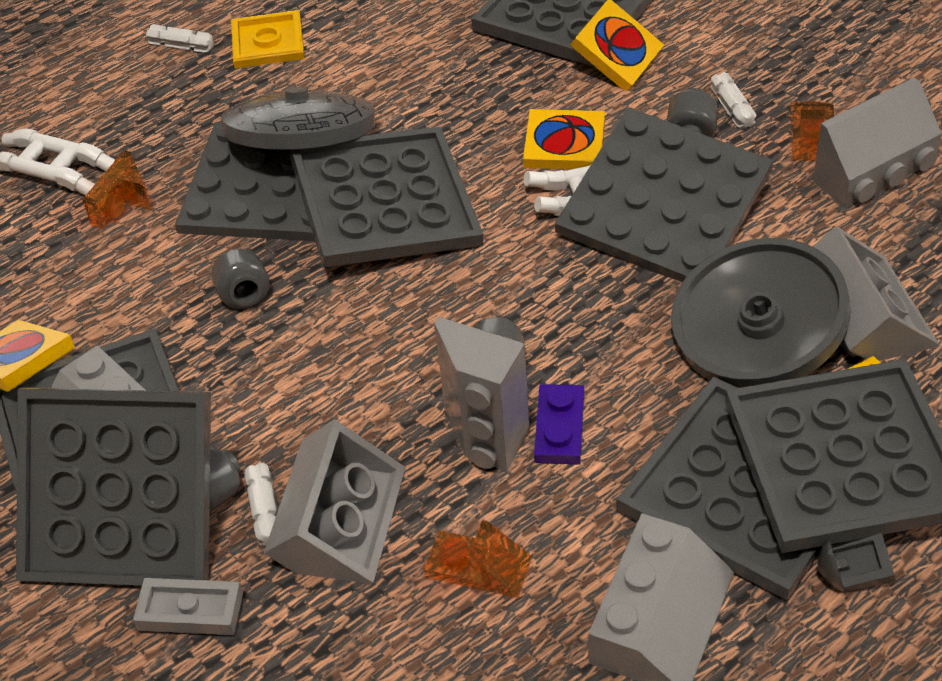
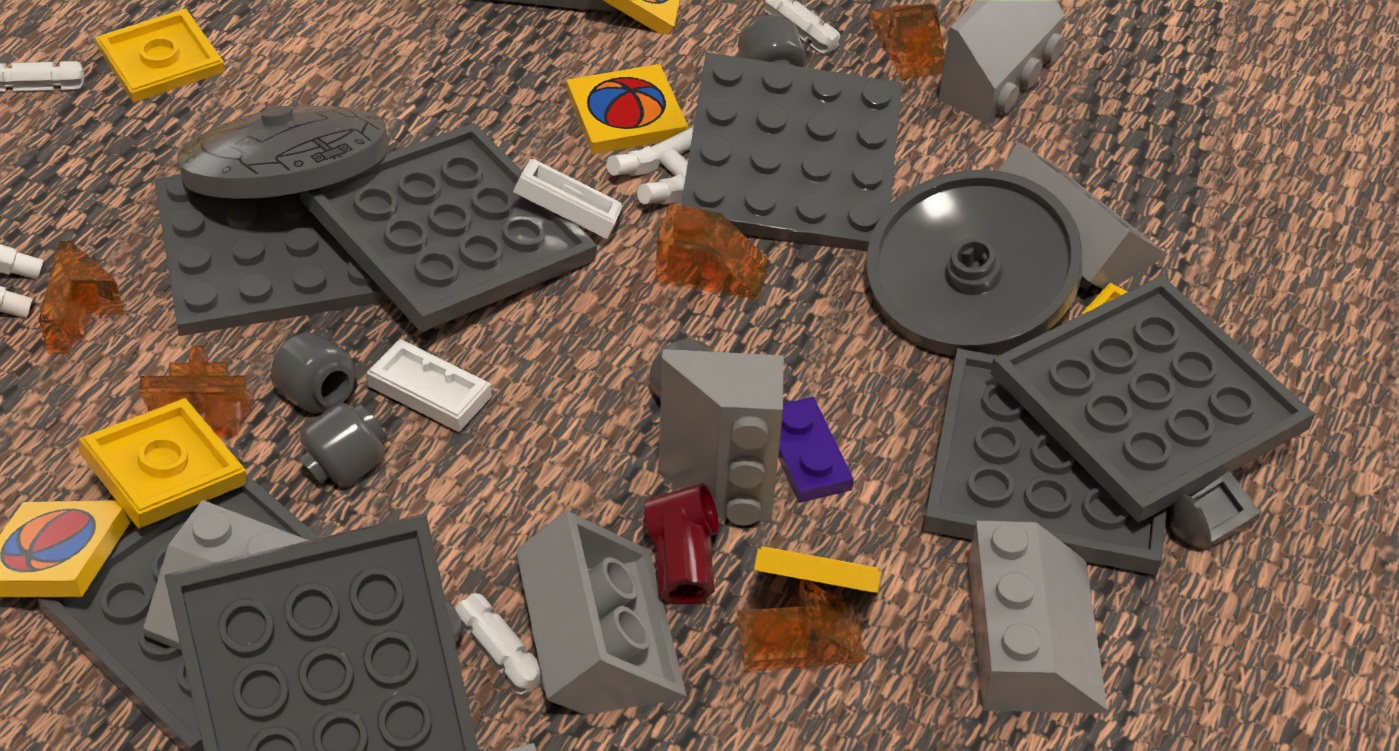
camera: 30 degrees left, 0 degrees up
(104, 314) = (162, 462): none -> yellow tile
(160, 268) = (205, 388): none -> clear orange hips
(231, 334) = (342, 445): none -> dark grey head
(315, 307) = (429, 385): none -> white plate
(426, 458) = (681, 531): none -> dark red piece
(479, 195) = (568, 198): none -> white tile
(505, 516) = (818, 569): none -> yellow tile
(560, 259) = (708, 254): none -> clear orange slope

